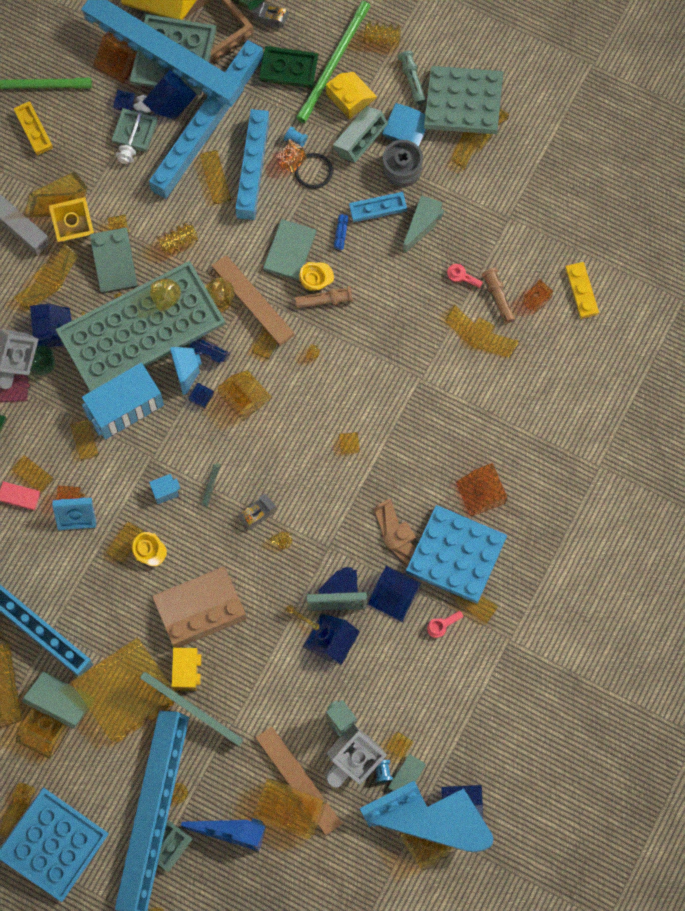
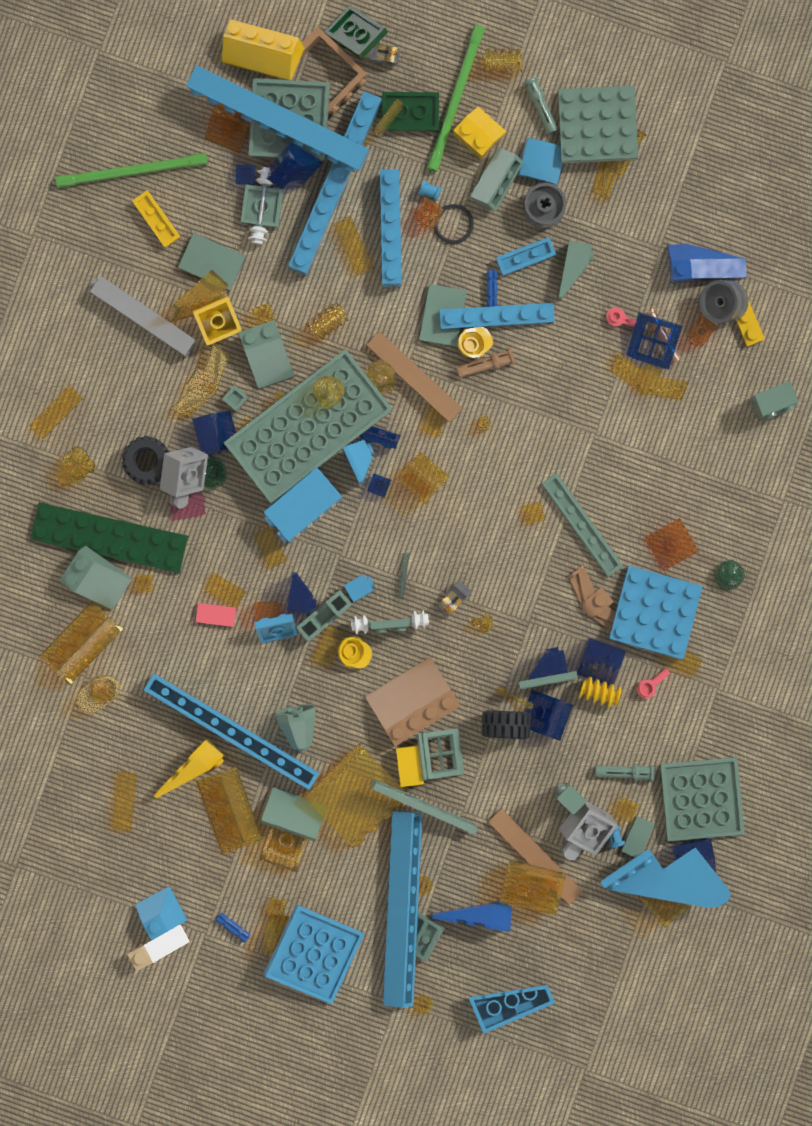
camera: 10 degrees left, 15 degrees up
(76, 296) = (235, 398): none -> sand green plate
(79, 612) = (298, 725): none -> sand green cone
(88, 170) = (205, 255): none -> sand green tile
(103, 487) = (300, 597): none -> clear blue slope
(135, 504) = (324, 616): none -> sand green arch
(188, 525) = (382, 626): none -> plate
(200, 661) = (458, 768): none -> sand green piece
(267, 66) = (388, 117): none -> clear yellow tile
(288, 638) = (506, 724): none -> black tyre
(341, 256) = (496, 316): none -> dark azure plate
(378, 703) = (635, 772): none -> sand green pin
(388, 623) = (600, 692): none -> yellow piece
(395, 461) = (582, 525): none -> sand green tile
(478, 746) = (702, 799): none -> sand green plate
(505, 303) = (670, 346): none -> clear blue piece
(535, 529) = (729, 575): none -> clear green hair
(544, 237) = (696, 264): none -> blue wedge
(562, 268) = (723, 301): none -> dark grey wheel
(600, 367) = (774, 400): none -> sand green brick

